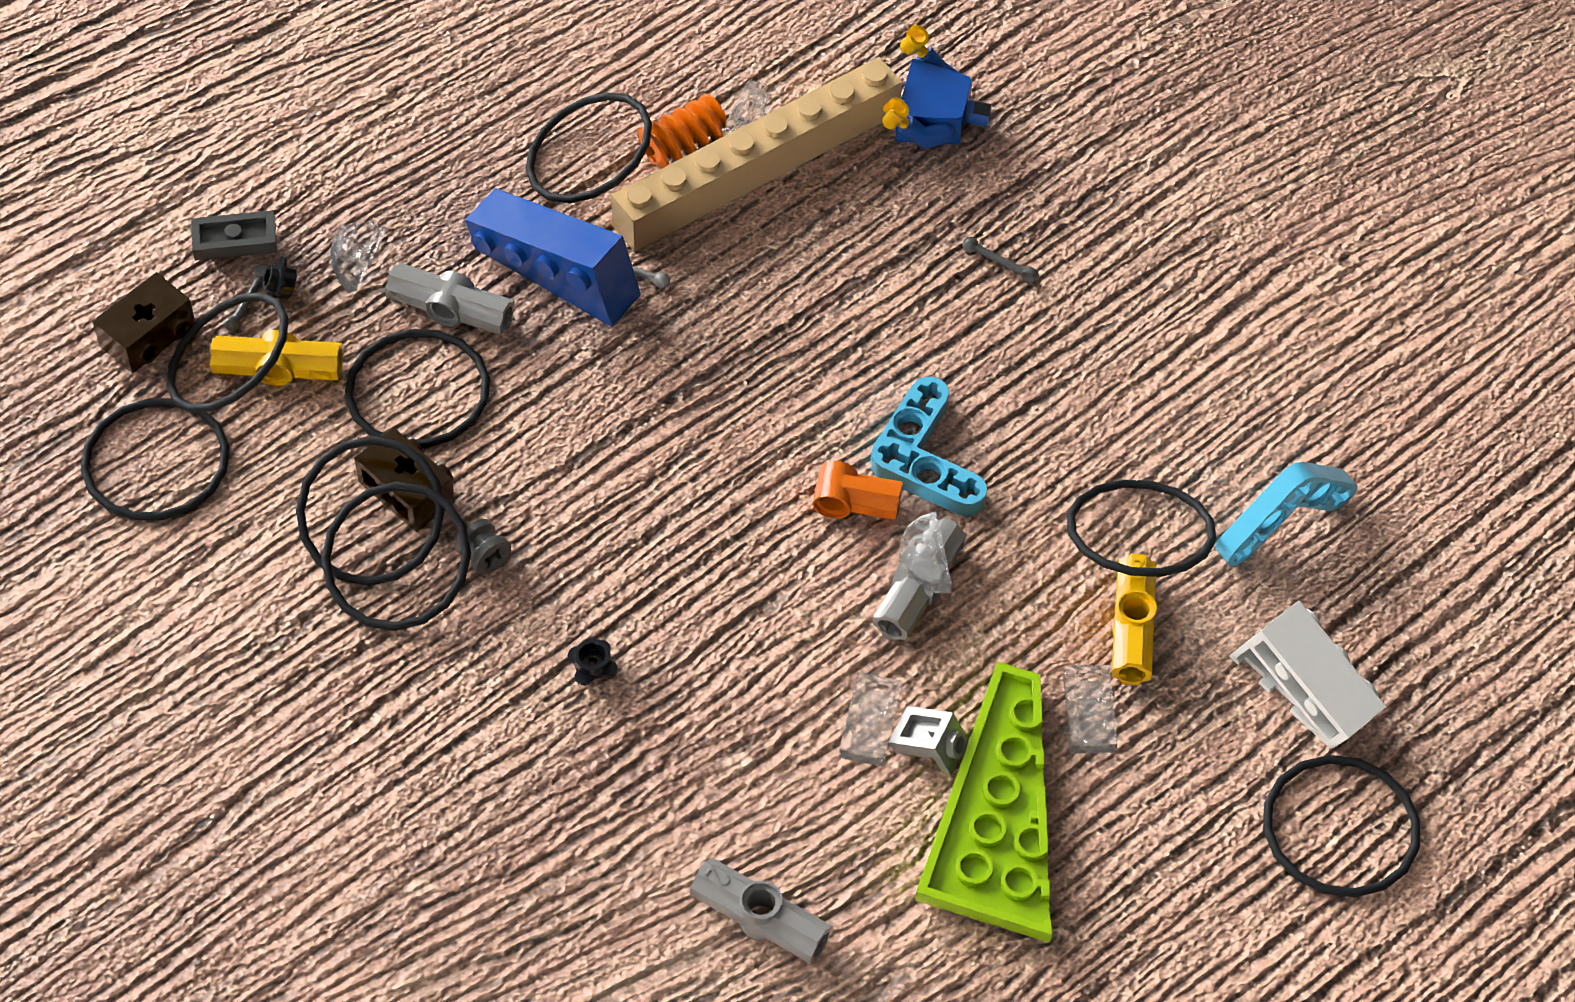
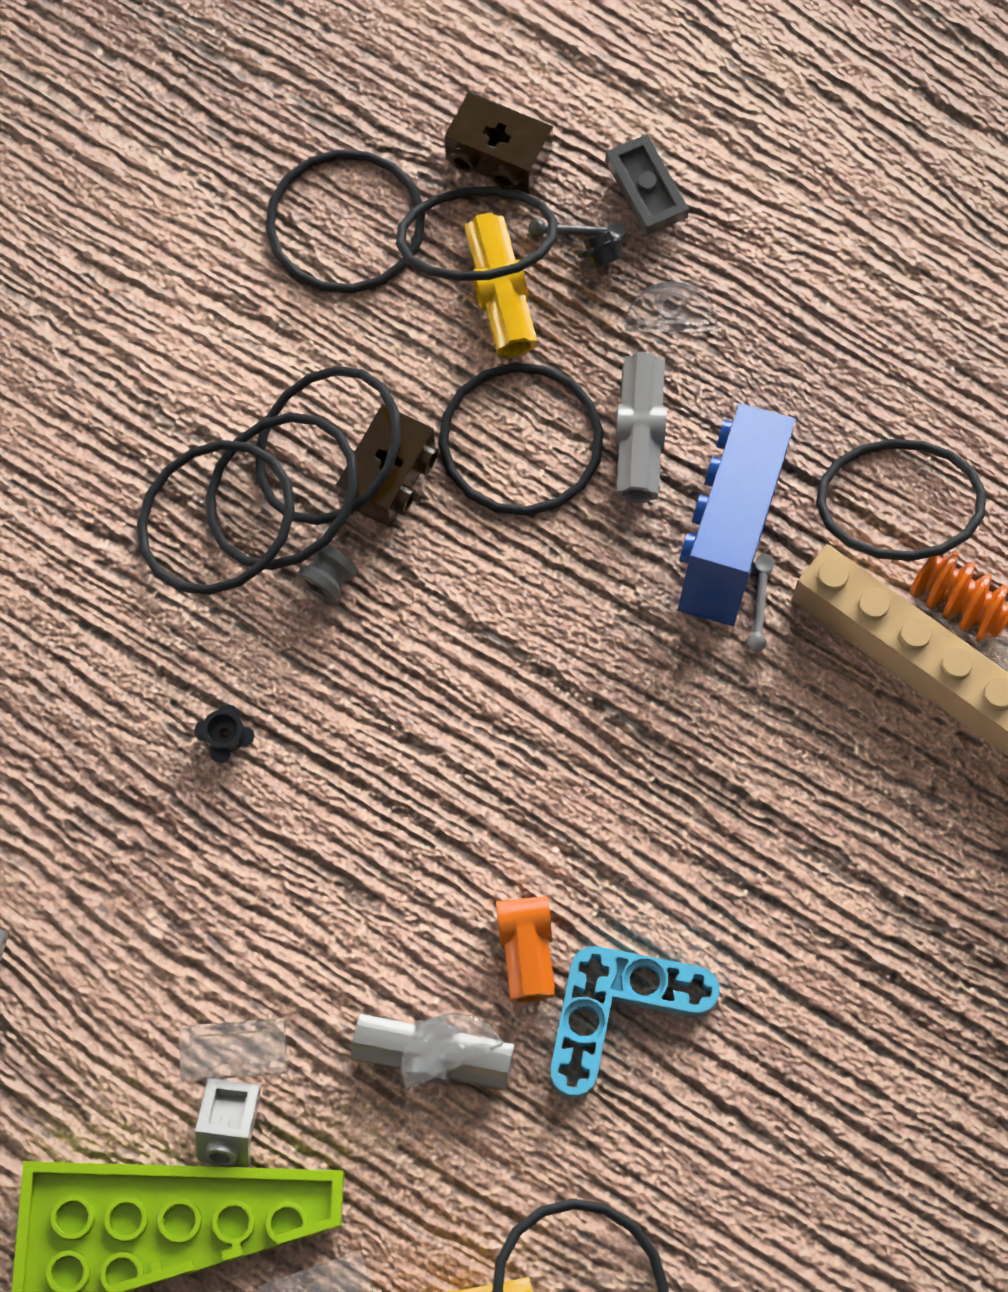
camera: 75 degrees right, 15 degrees up
(436, 666) = (256, 568): none -> black piece
(1028, 274) = (943, 978): dark grey hinge -> none

